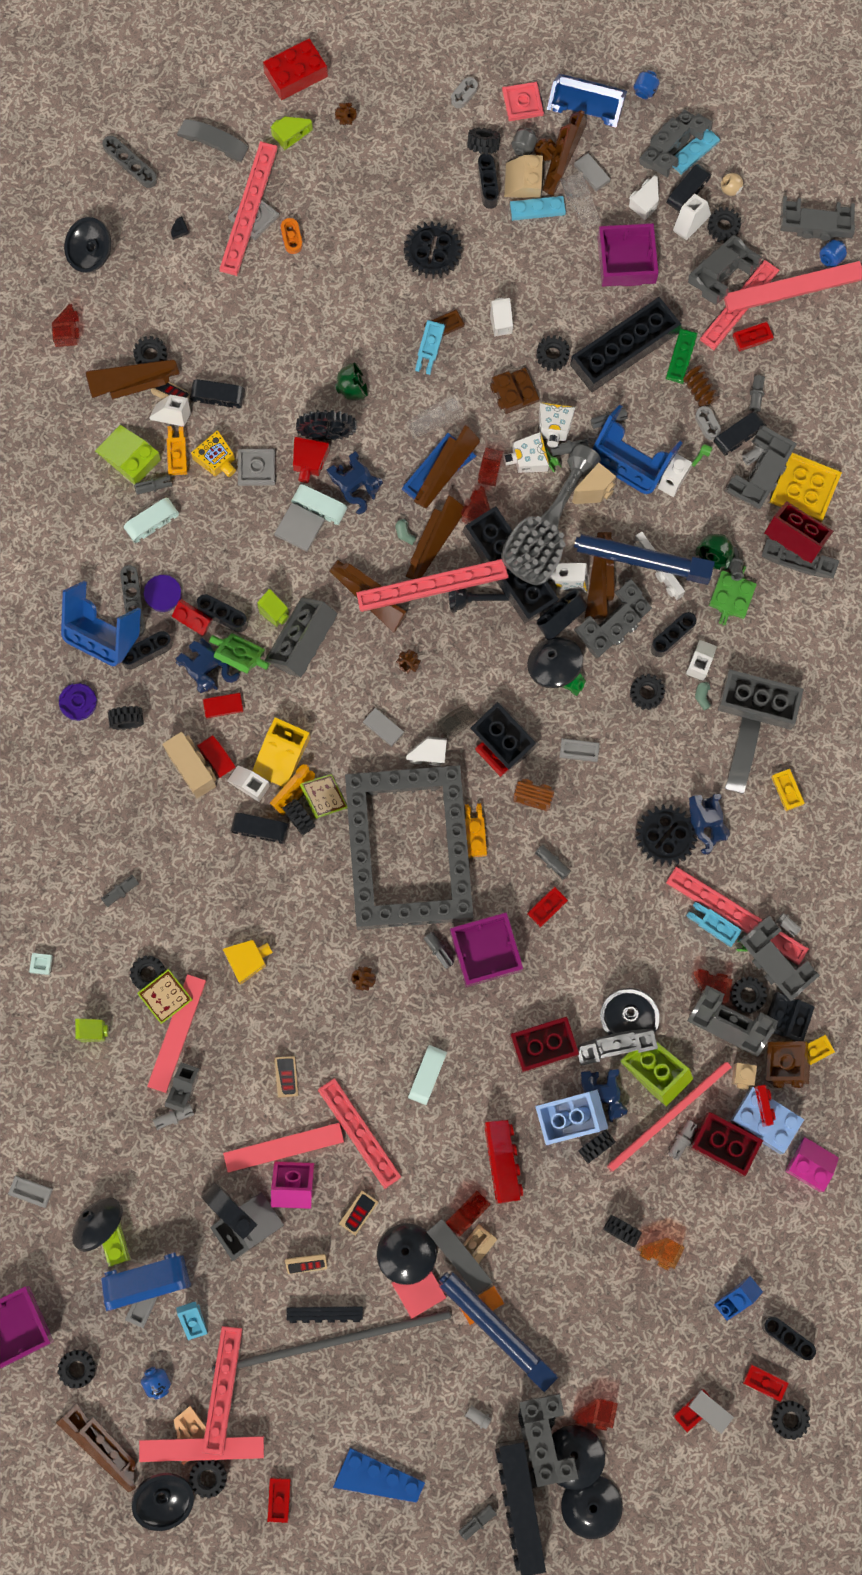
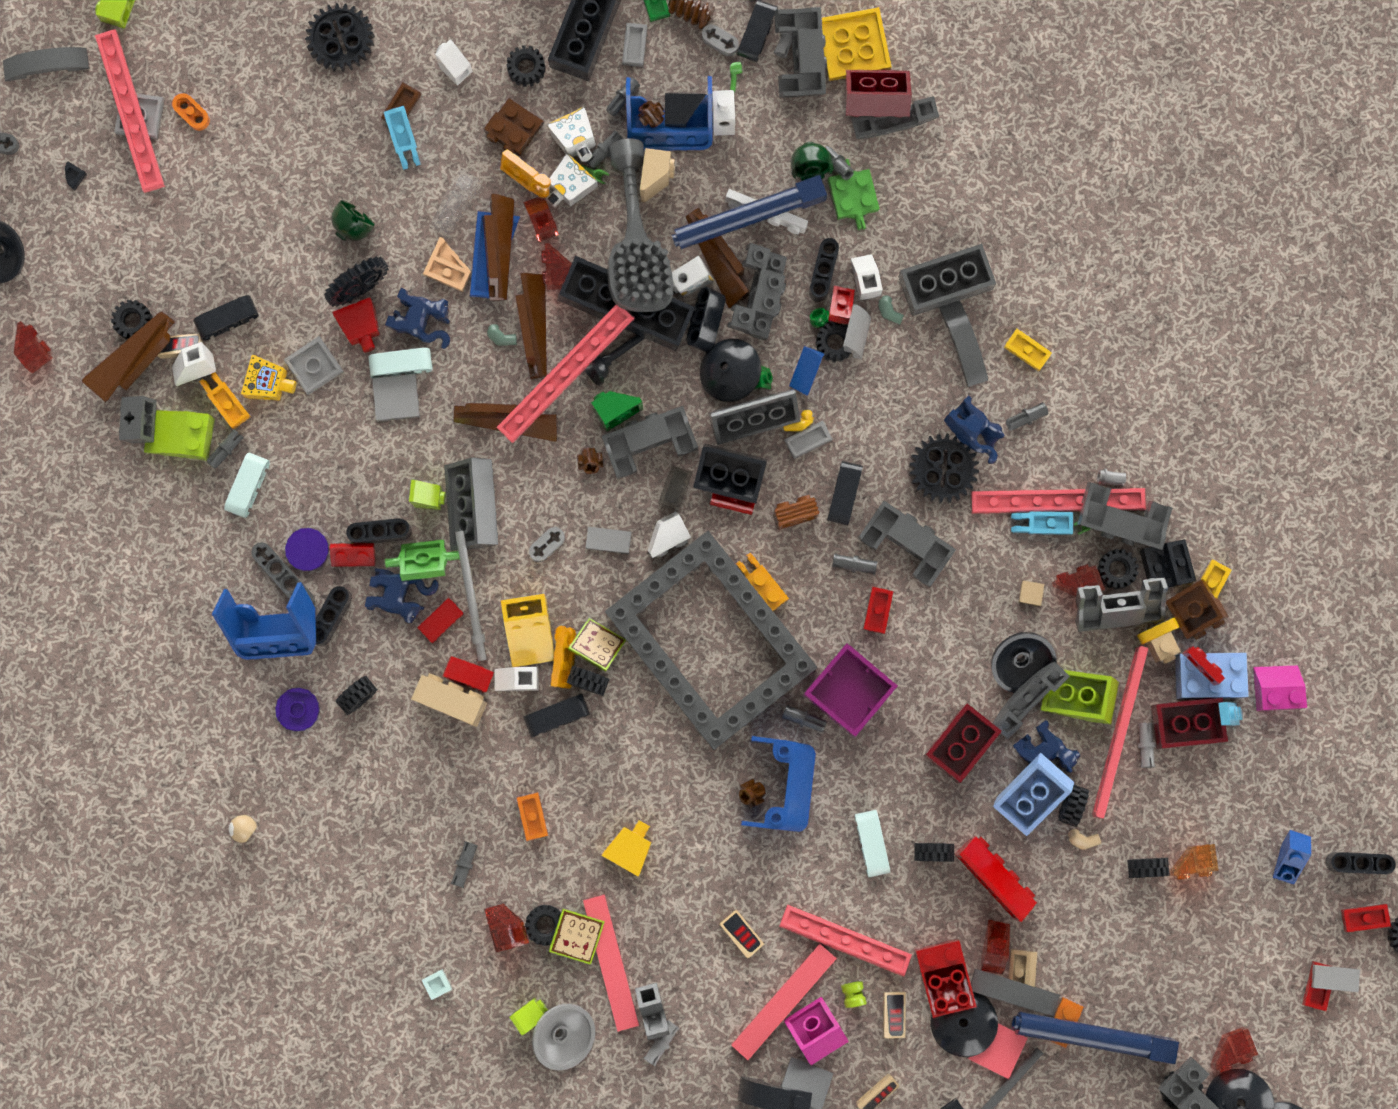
camera: 30 degrees left, 5 degrees up
(106, 424) = (137, 419): none -> dark grey brick
(108, 1072) = (571, 1042): none -> light grey dish
(117, 956) = (505, 928): none -> clear red slope
(192, 889) = (532, 816): none -> orange plate
(241, 734) = (478, 637): none -> light grey bar
(335, 696) = (551, 548): none -> light grey beam
(336, 1181) = (856, 999): none -> lime wheel
(399, 458) = (447, 267): none -> light nougat wing
(399, 998) = (799, 786): none -> blue windscreen
(414, 1210) = (945, 978): none -> red slope
(452, 635) = (615, 408): none -> green slope
(461, 669) = (648, 434): none -> dark grey bracket
(469, 1111) = (934, 852): none -> black tyre
(499, 428) = (524, 174): none -> light orange hinge
(550, 706) = (754, 416): none -> dark grey slope
(579, 805) = (845, 492): none -> black beam
(586, 1180) = (1081, 841): none -> tan arm
(588, 734) = (805, 421): none -> yellow arm
(607, 868) = (911, 537): none -> dark grey bracket
(611, 698) = (806, 370): none -> blue slope
(621, 443) = (651, 114): none -> reddish brown gear
(643, 387) = (634, 44): none -> light grey tile
(644, 451) = (680, 107): none -> black slope
(647, 666) = (819, 317): none -> green plate
(667, 694) = (857, 332): none -> light grey slope
(669, 667) = (841, 304): none -> red plate
(671, 970) = (1031, 593): none -> tan tile
(754, 838) = (1027, 416): none -> dark grey axle
(759, 1061) = (1158, 631): none -> yellow beam
(760, 1156) = (1230, 714): none -> medium azure plate

